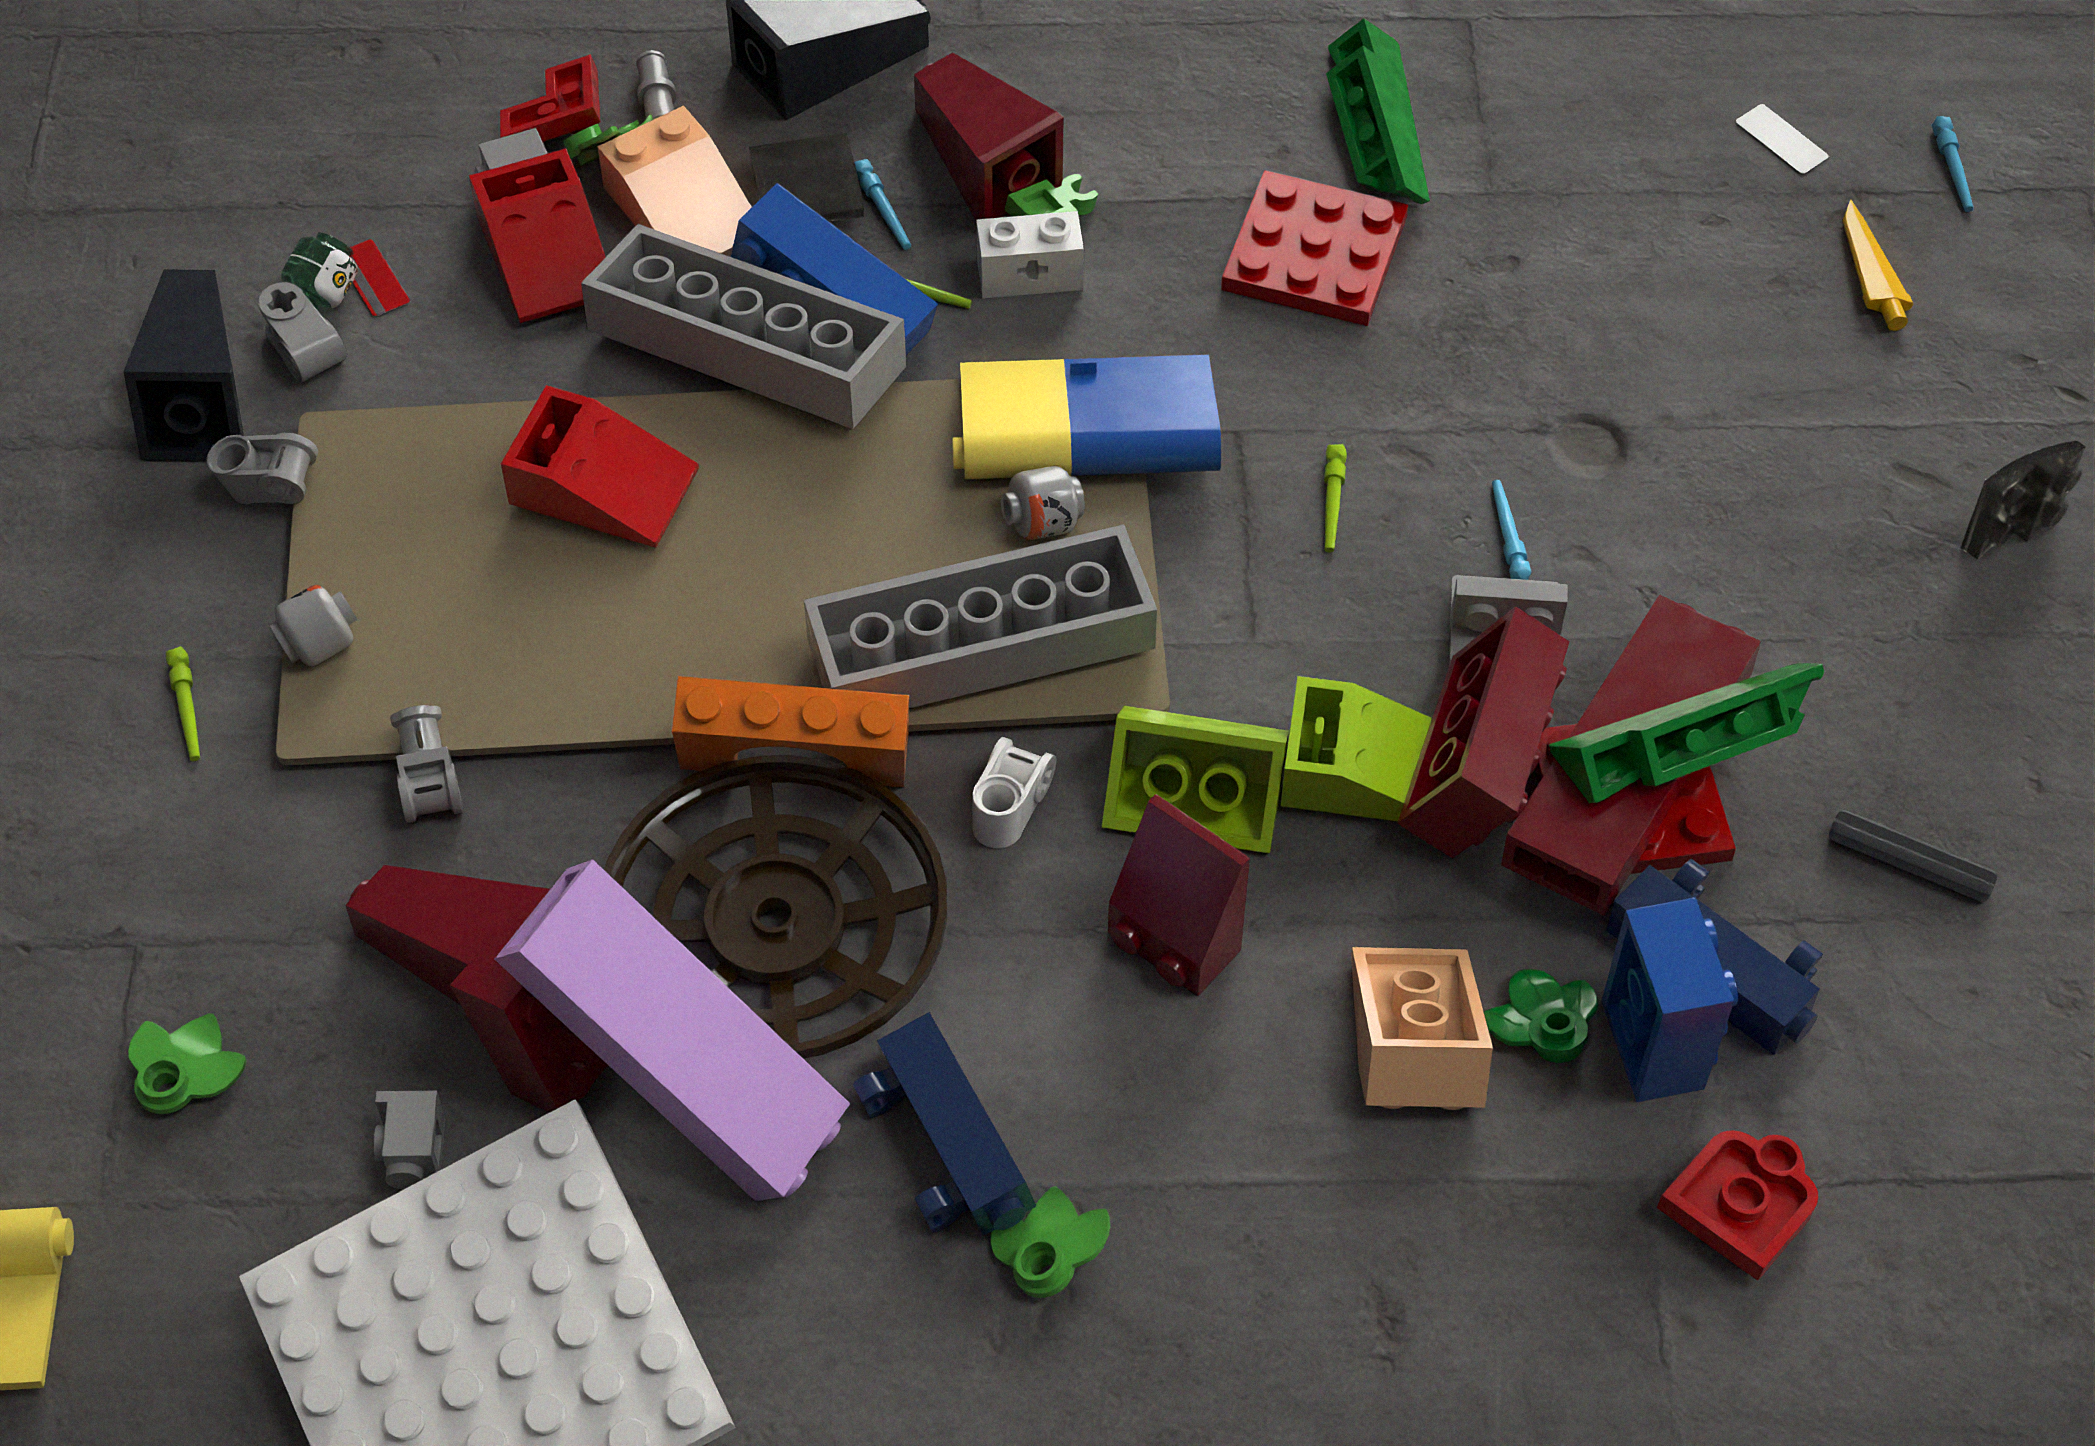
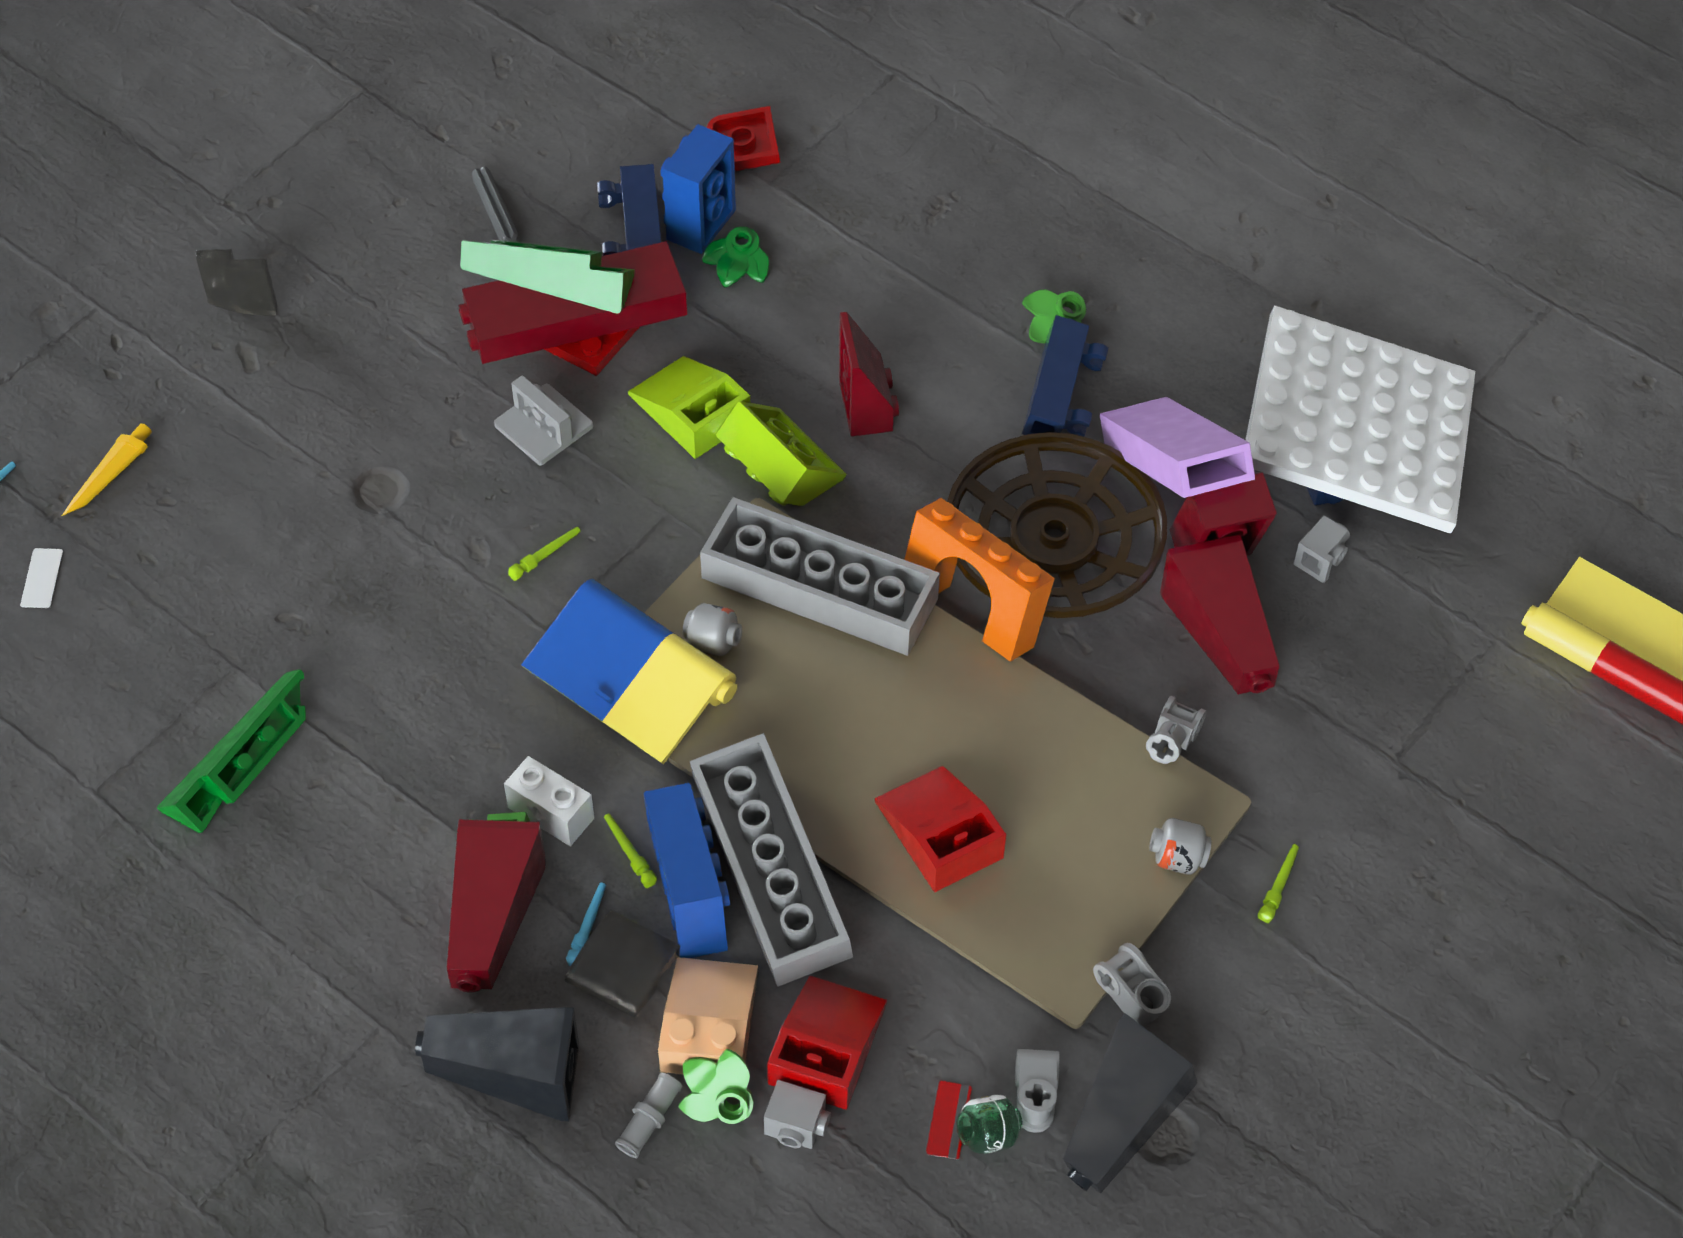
camera: 140 degrees left, 0 degrees up
(187, 1058) = (1410, 673): bright green plate -> none
(567, 108) = (723, 1138): red plate -> none
(1010, 784) = (879, 510): white piece -> none
(1315, 247) = (377, 700): plate -> none
(1420, 1028) = (800, 282): light nougat slope -> none
(1485, 734) = (635, 350): dark red brick -> none
(1514, 548) = (488, 460): medium azure piece -> none

